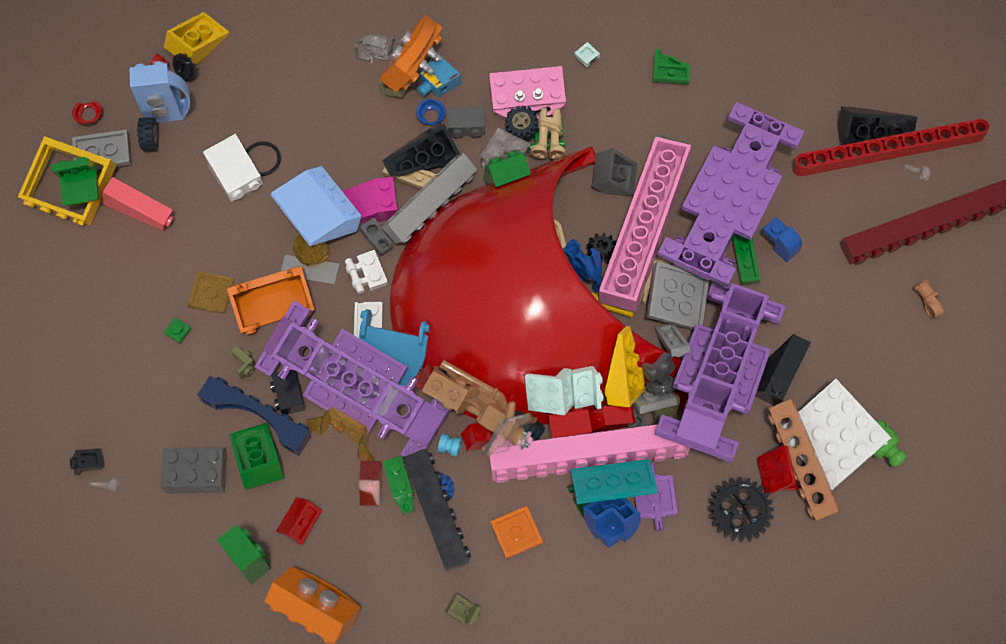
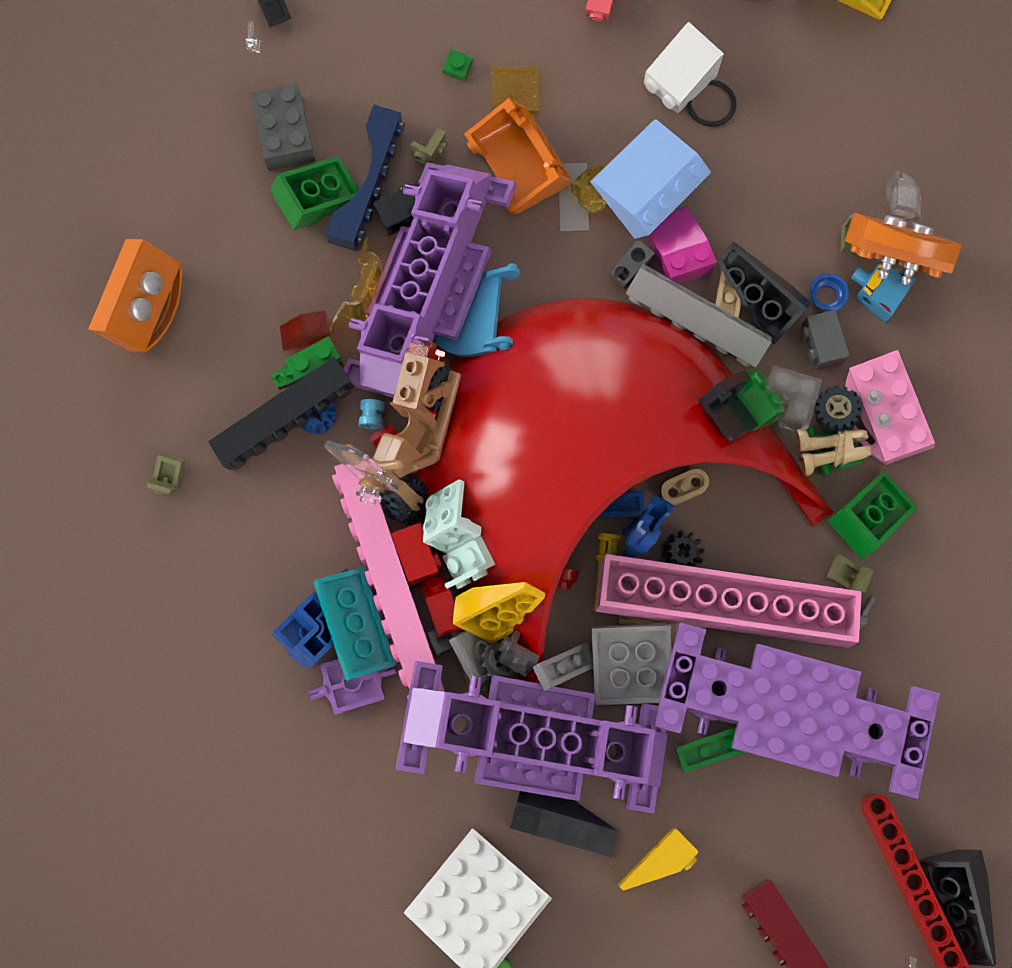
camera: 75 degrees right, 10 degrees up
(245, 553) = (181, 203): green brick -> none
(299, 520) = (245, 261): red panel -> none
(371, 269) = (587, 270): white plate -> none
(376, 317) = (526, 286): white plate -> none
(512, 184) = (726, 407): none -> black bracket
(516, 532) = (275, 518): orange plate -> none
(587, 54) = (971, 478): light aqua plate -> none
(600, 121) = (872, 515): none -> green slope
(614, 173) = (797, 548): dark grey slope -> none
(640, 144) = (849, 575): none -> olive bracket
(670, 69) = (979, 595): green wing -> none
(756, 501) = (340, 777): black gear -> none
(777, 471) = (415, 838): red bracket -> none
(786, 239) = (751, 797): blue brick -> none
(818, 306) = (664, 859): none -> yellow slope
(829, 505) = (447, 870): nougat brick -> none

